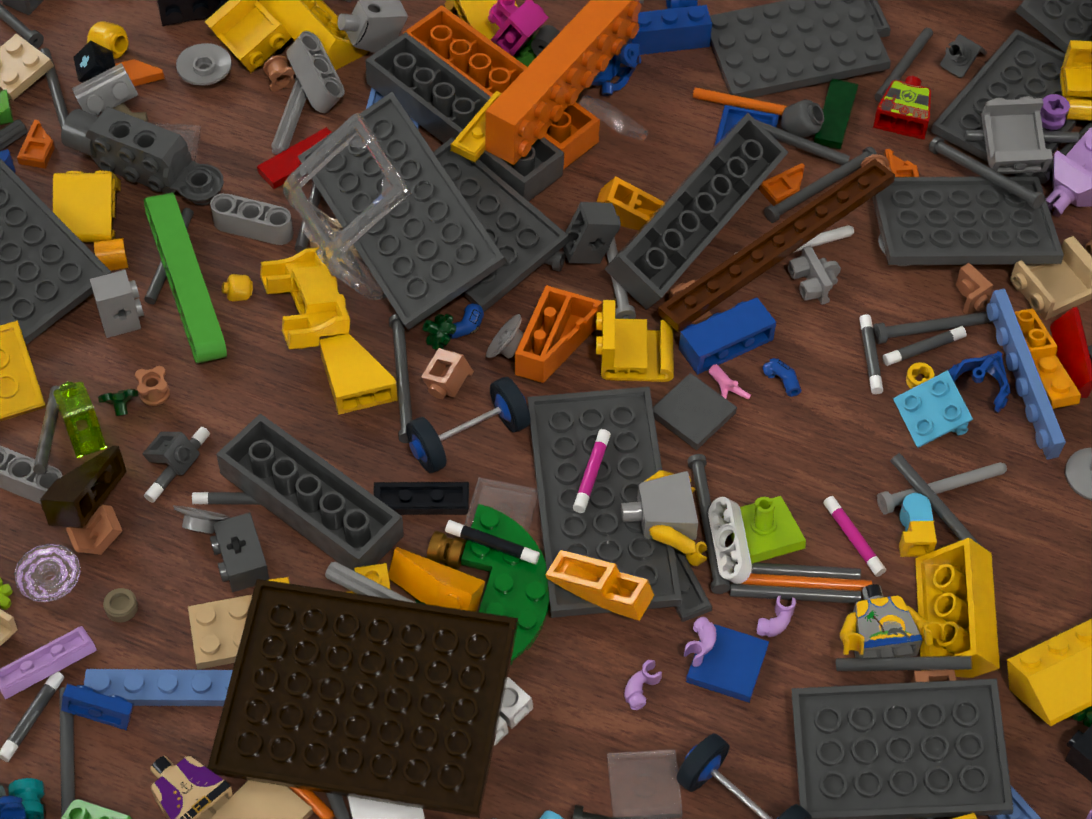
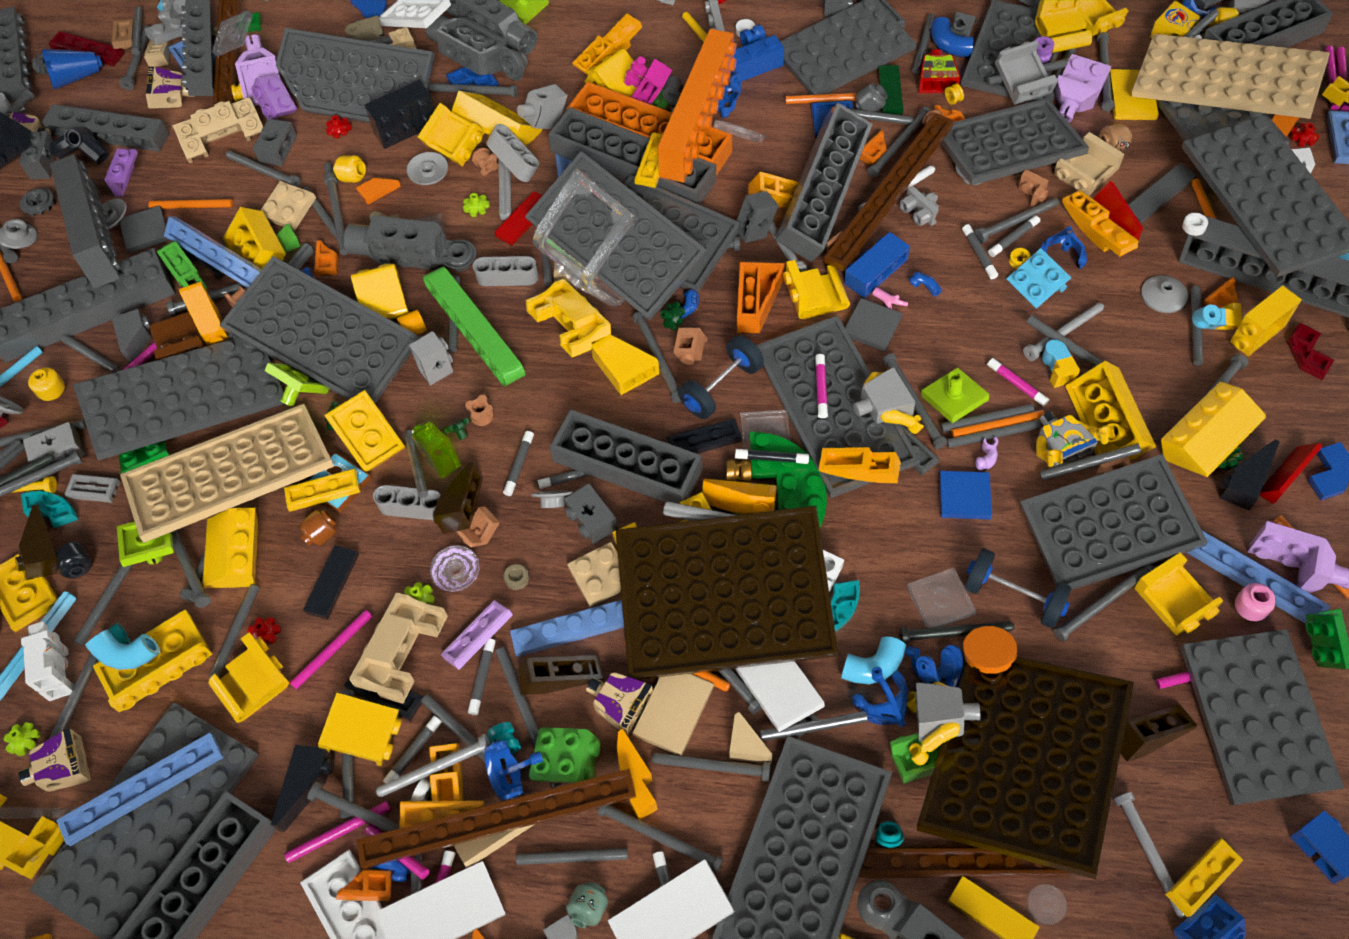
camera: 10 degrees left, 5 degrees up
(70, 99) = (331, 181): none -> dark grey bar
(92, 61) = (348, 189): black brick -> none
(95, 706) = (516, 653): blue plate -> none
(105, 90) = (363, 205): light grey brick -> none
(123, 738) = (557, 673): none -> dark brown slope
(172, 449) = (511, 453): dark grey bracket -> none
(238, 287) = (513, 323): yellow piece -> none
(248, 125) = (475, 205): none -> lime plant
(506, 339) = (723, 308): light grey piece -> none
(515, 756) = (844, 602): none -> teal tile
(633, 690) = (907, 532): lavender arm -> none
(707, 635) = (948, 484): lavender arm -> none
(738, 549) = (945, 413): white beam -> none
(916, 140) = (954, 94): none -> yellow bush
(935, 69) = (948, 41): none -> blue cylinder
(1028, 382) = (1093, 236): medium blue plate -> none
(1034, 198) = (1055, 113): dark grey bar -> none

